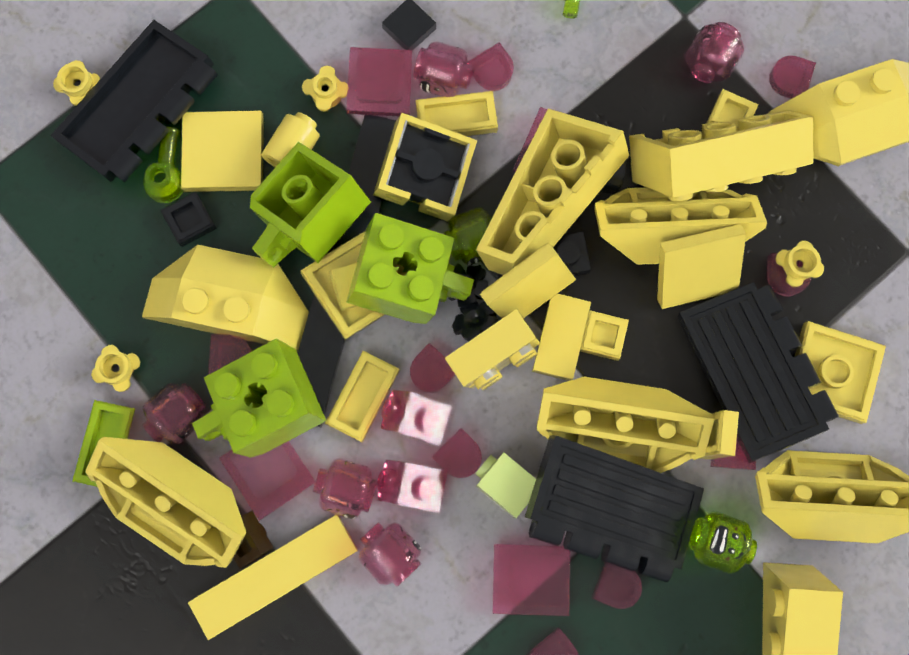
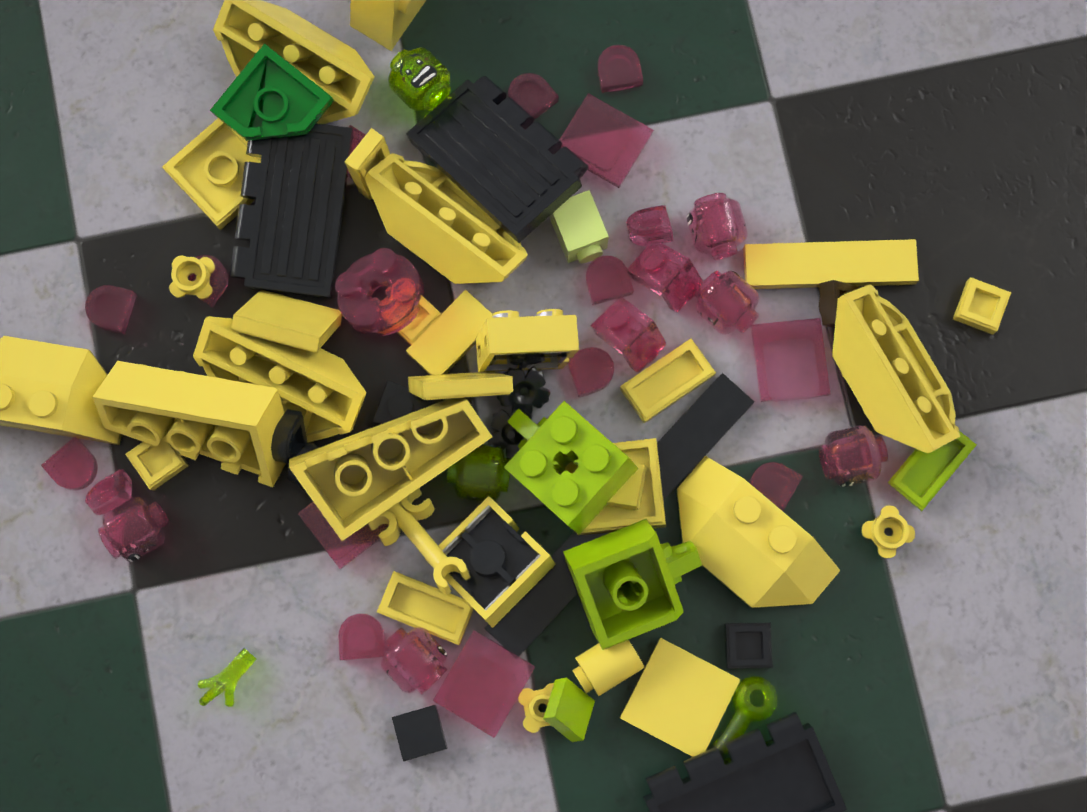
camera: 145 degrees left, 0 degrees up
(122, 612) = (982, 306): none -> light yellow tile
(260, 401) = (788, 410): lime hinge -> none
(303, 92) = (569, 709): none -> lime tile
(447, 520) = (650, 226): none -> clear pink tile
(479, 147) = (404, 517): none -> light yellow bar
(640, 176) = (288, 436): none -> black tile
(662, 334) = (368, 274): none -> clear pink plate
(749, 69) = (110, 493): none -> clear pink tile
(836, 442) = (271, 99): none -> green plate
(846, 210) = (110, 307): none -> clear pink tile

